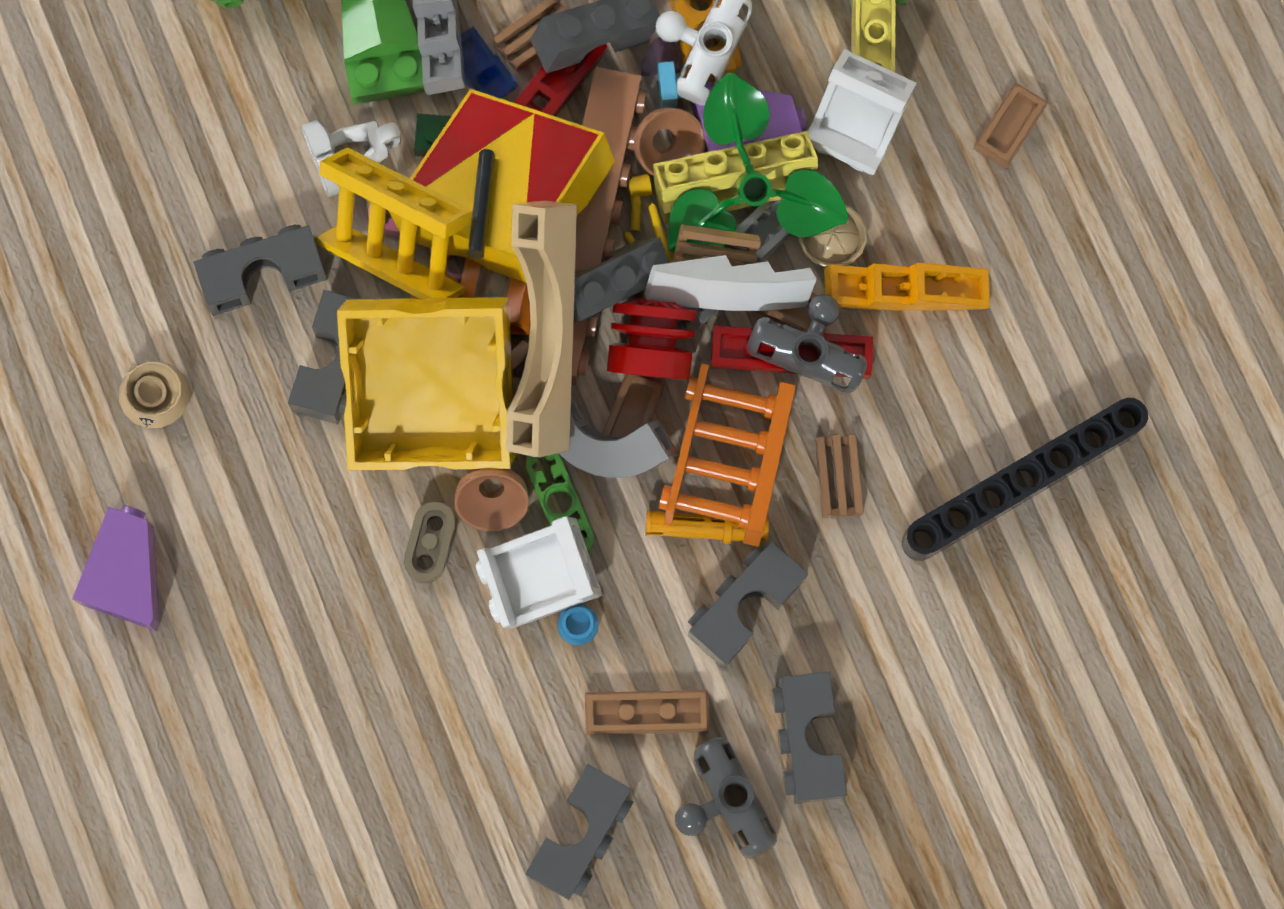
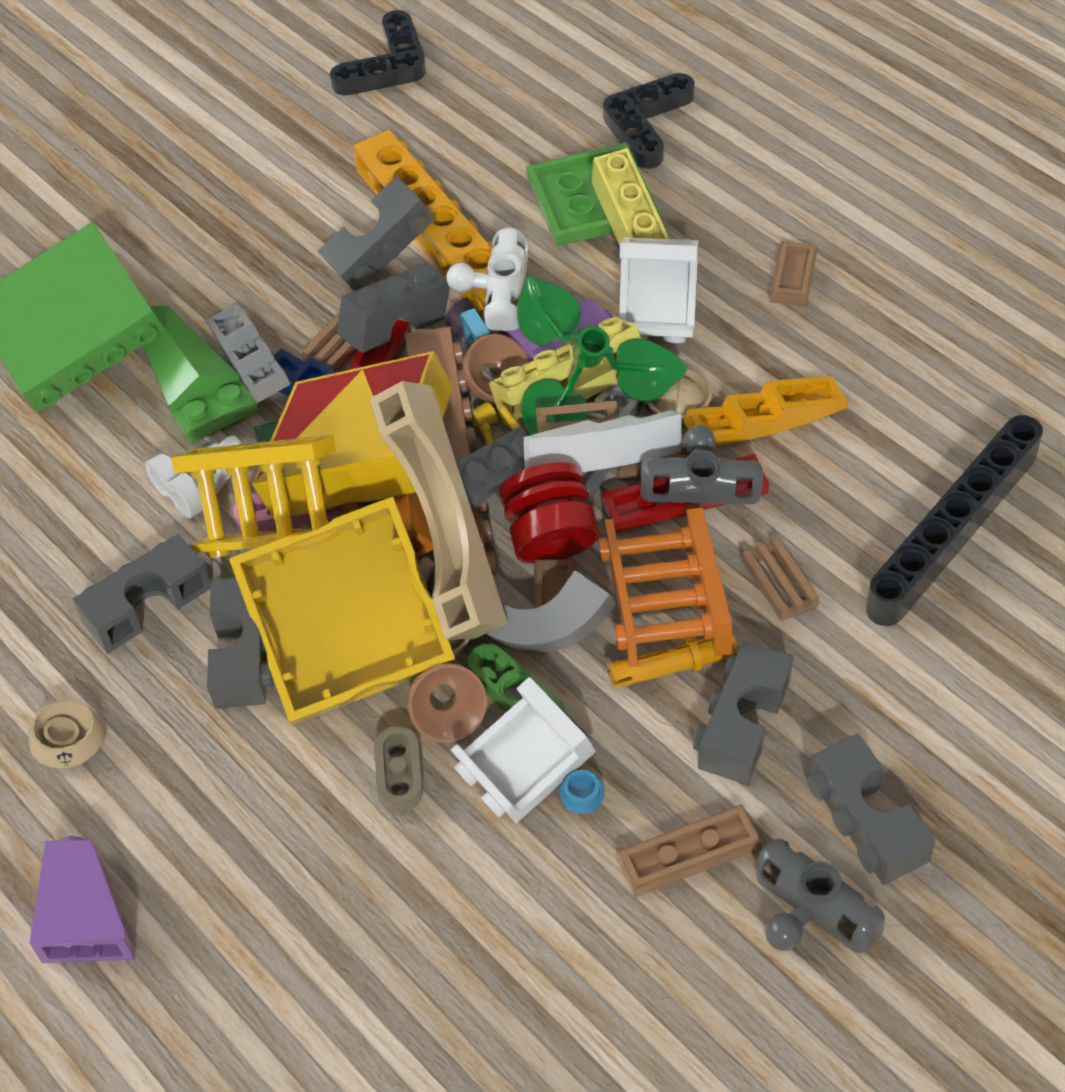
camera: 10 degrees left, 25 degrees down
(481, 204) = (341, 439): black bar -> none
(565, 867) = (667, 1027): dark grey arch -> none

